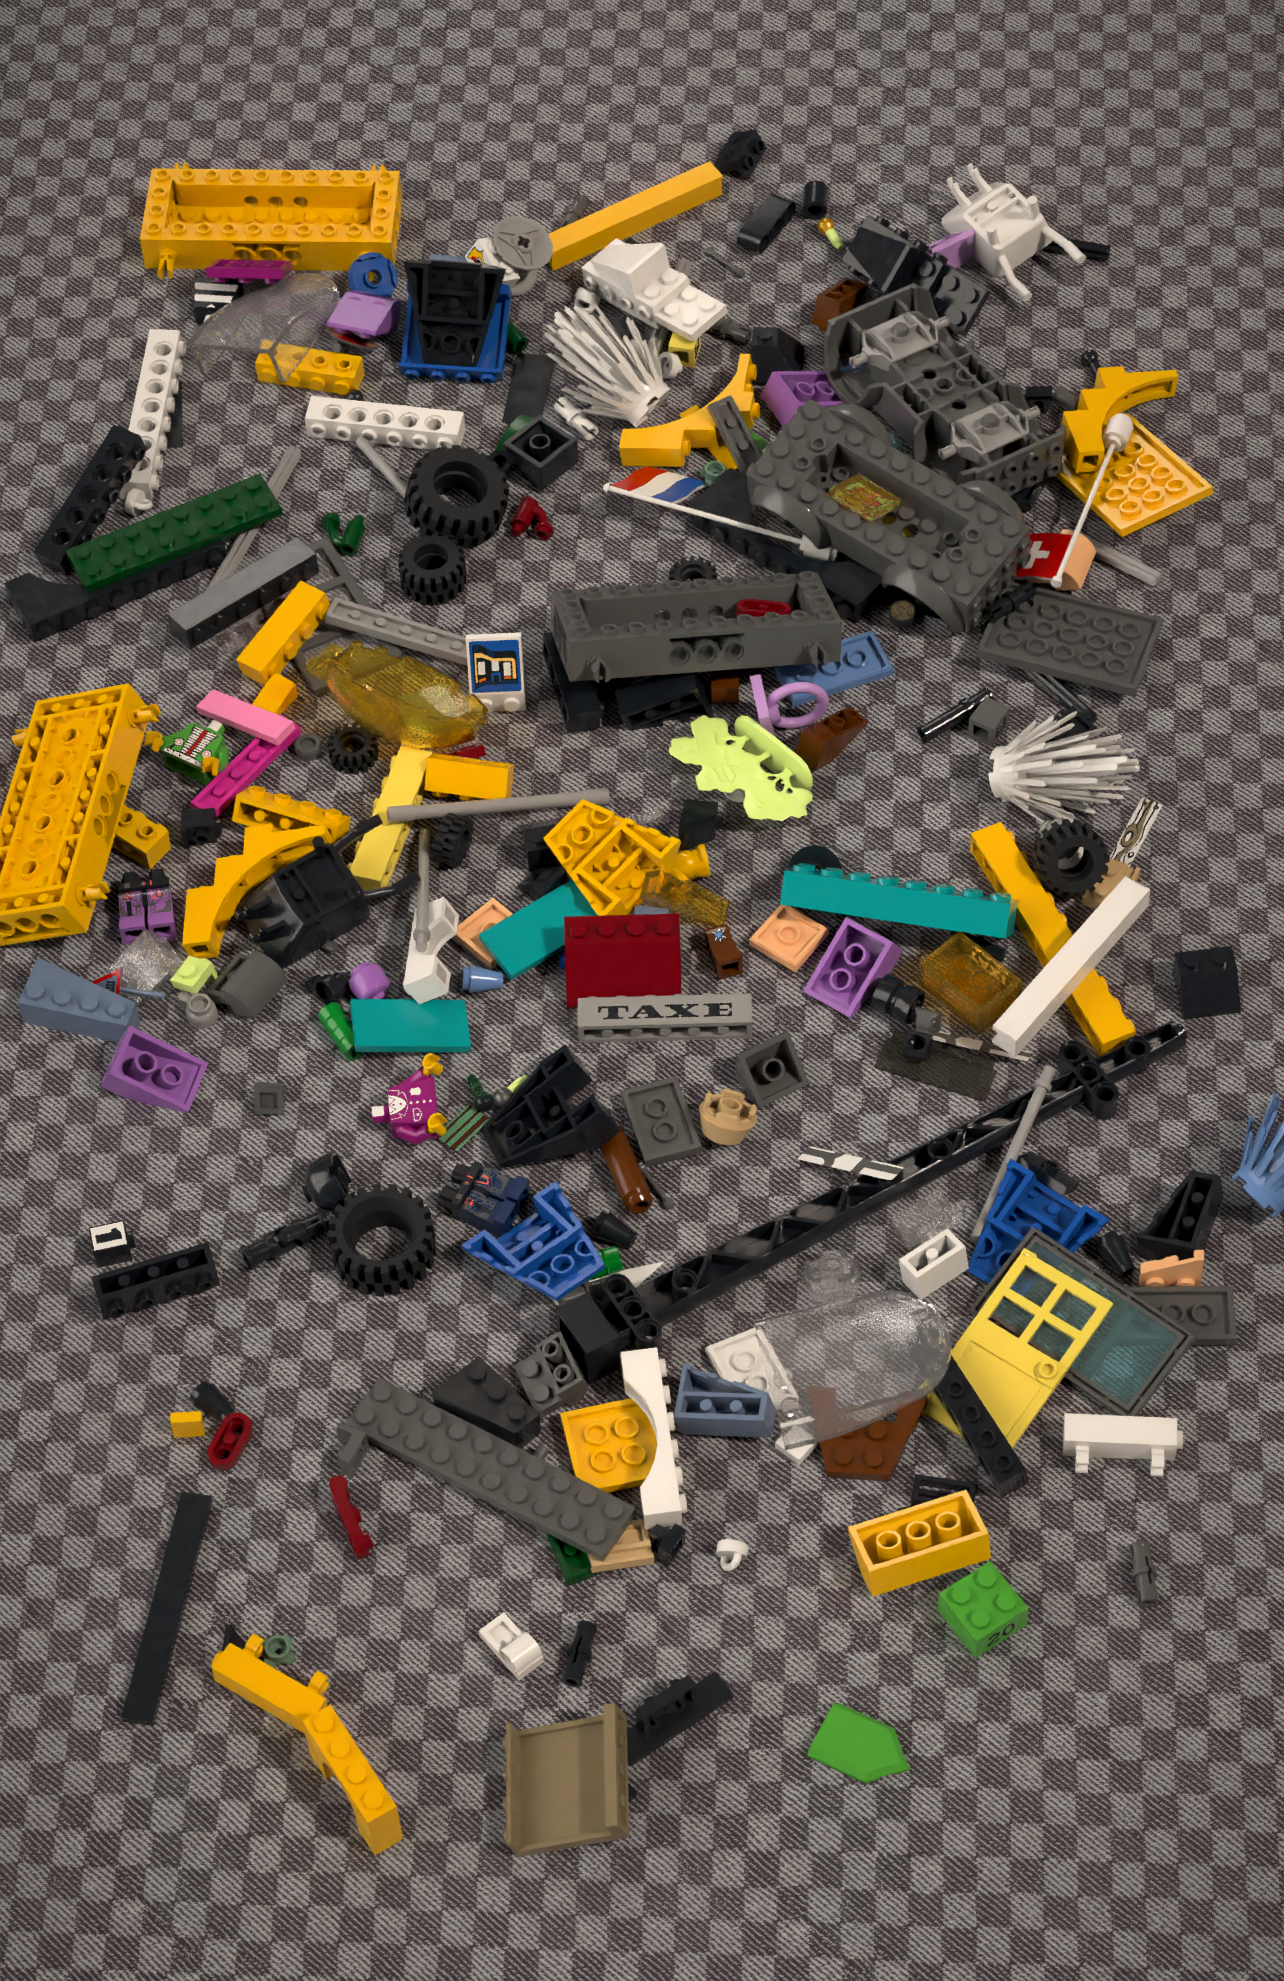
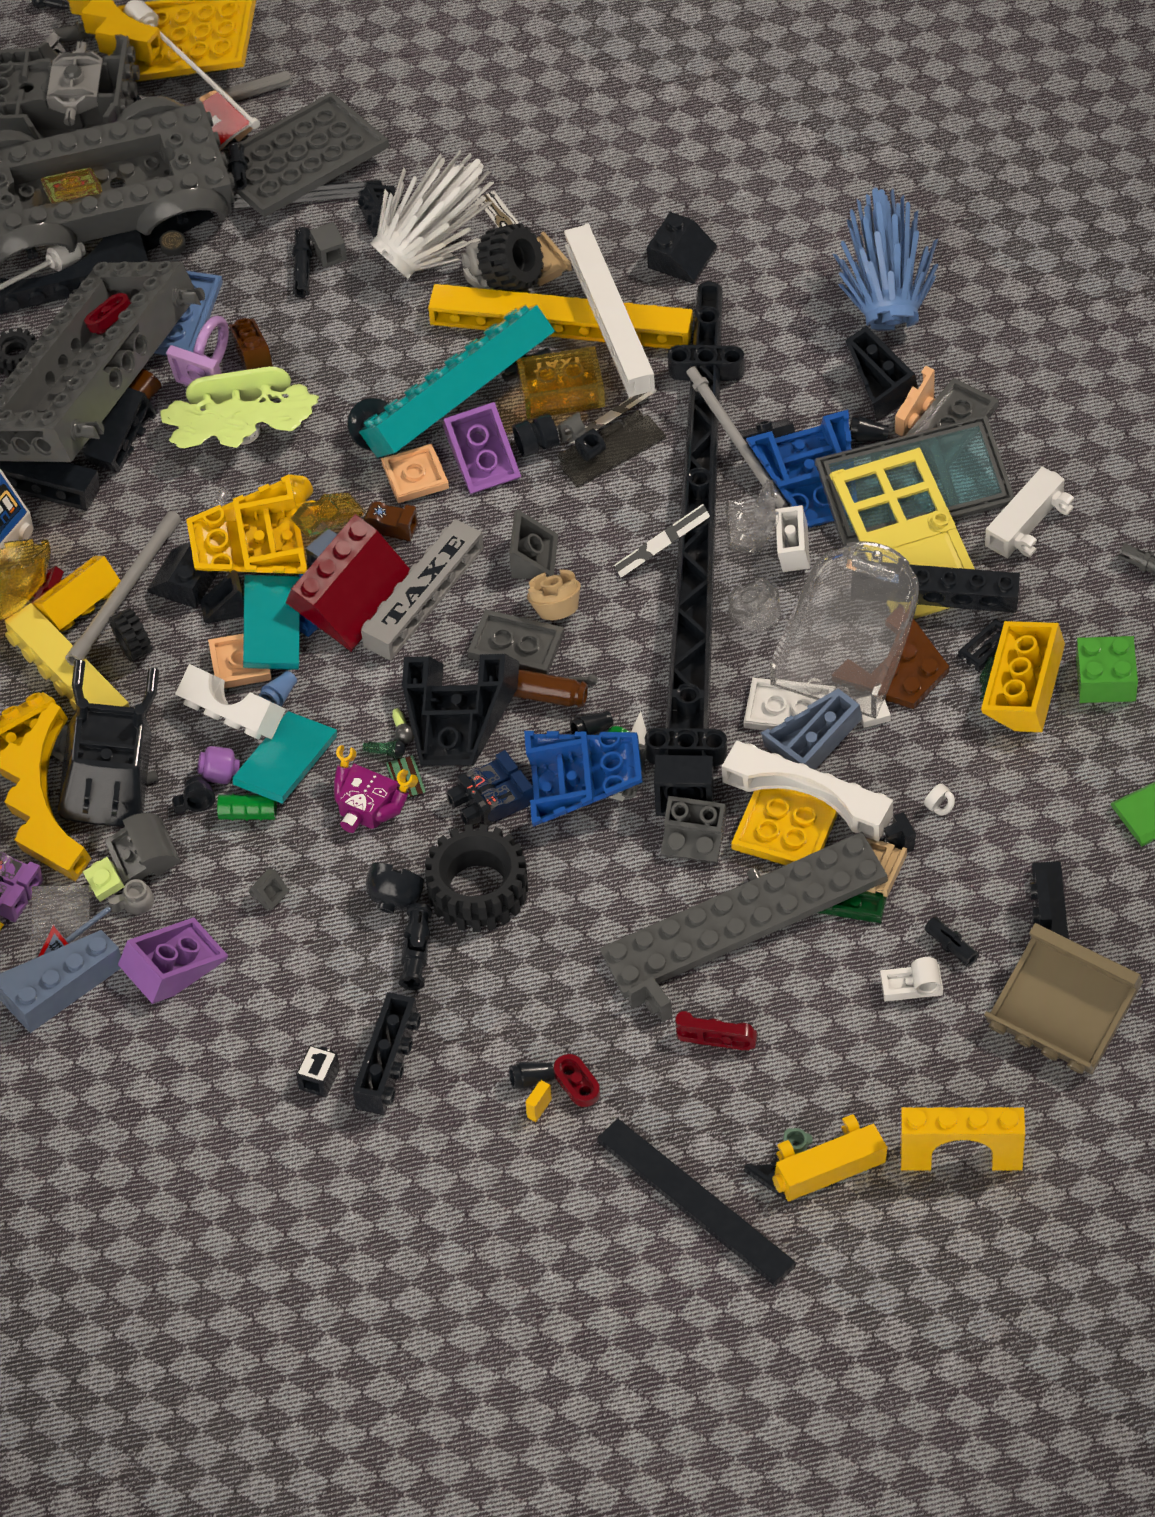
camera: 55 degrees left, 0 degrees up
(422, 933) = (217, 693): light grey bar -> none
(488, 1403) = (687, 882): black wedge -> none
(698, 823) = (257, 468): black slope -> none

